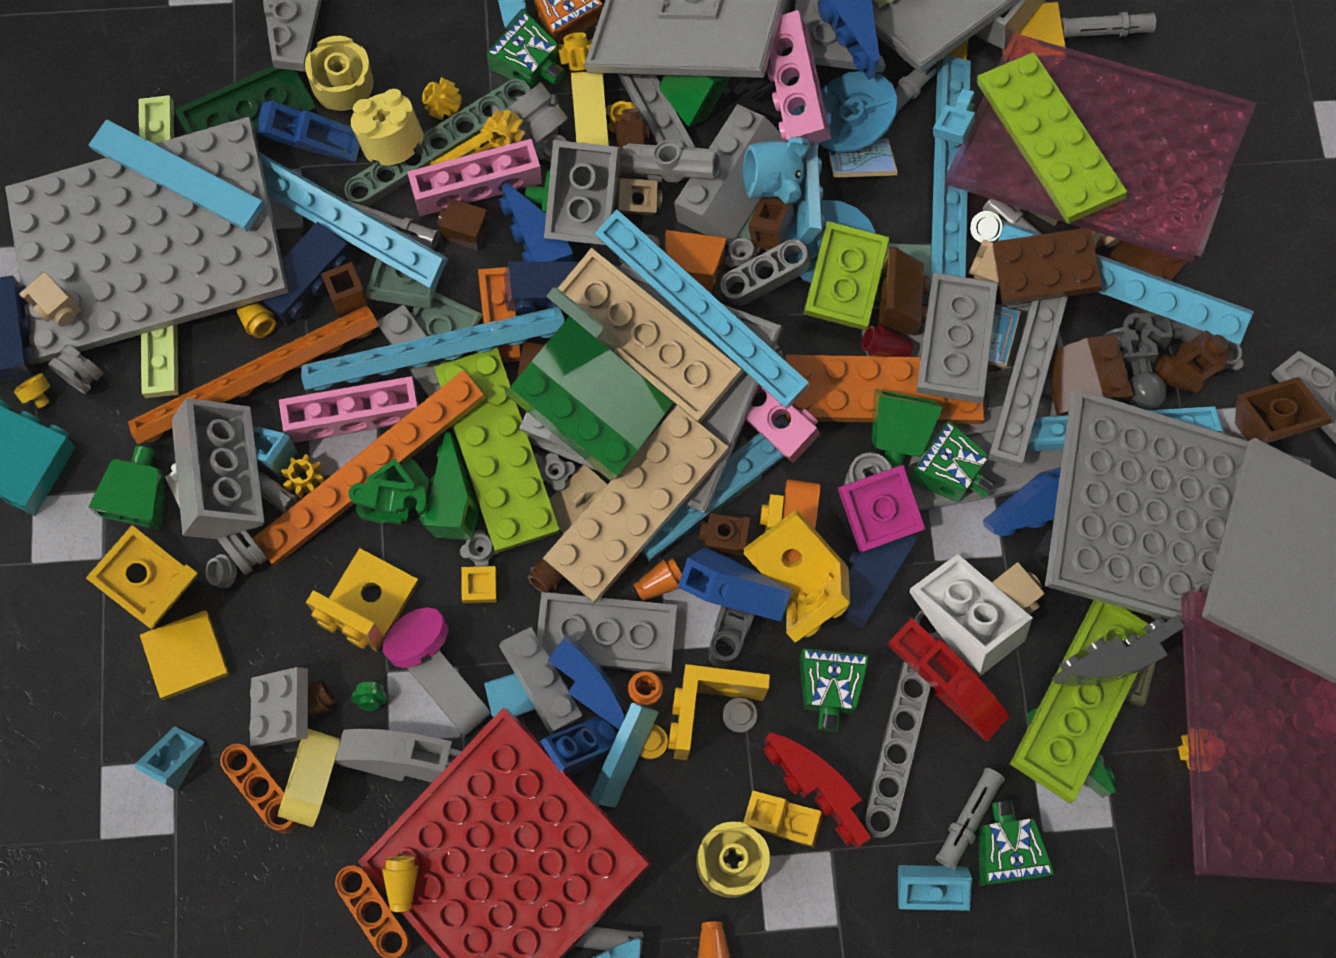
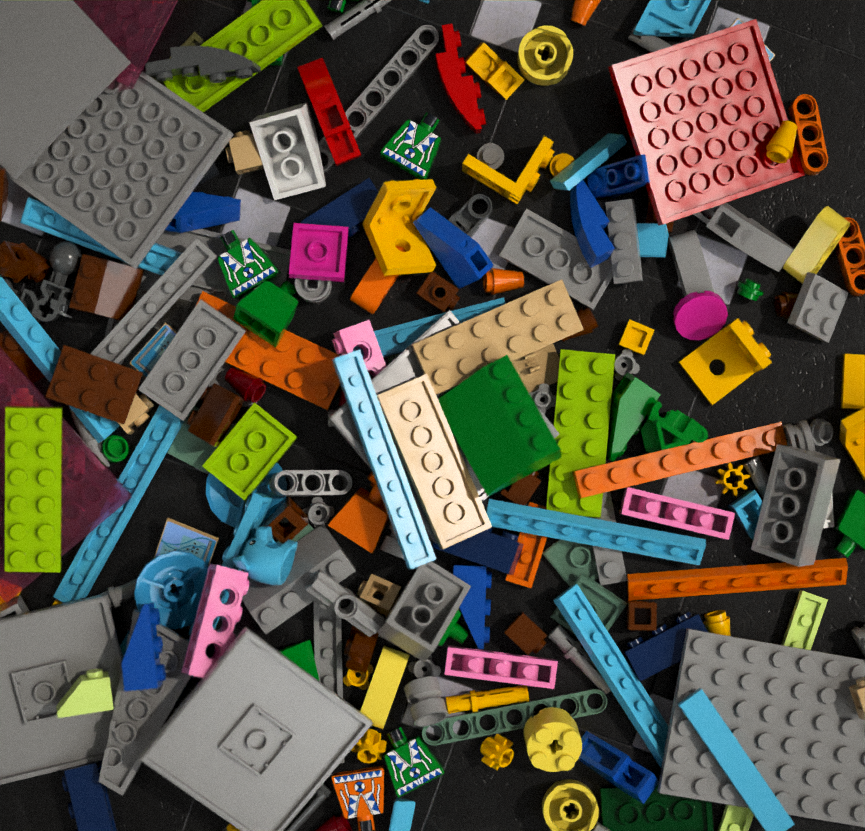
camera: 150 degrees left, 15 degrees up
(504, 128) = (461, 694): yellow gear -> none
(583, 318) = (478, 485): sand green tile -> none
(647, 684) = (543, 200): orange cone -> none
(772, 513) = (397, 291): yellow plate -> none
(956, 121) = (97, 541): medium azure plate -> none

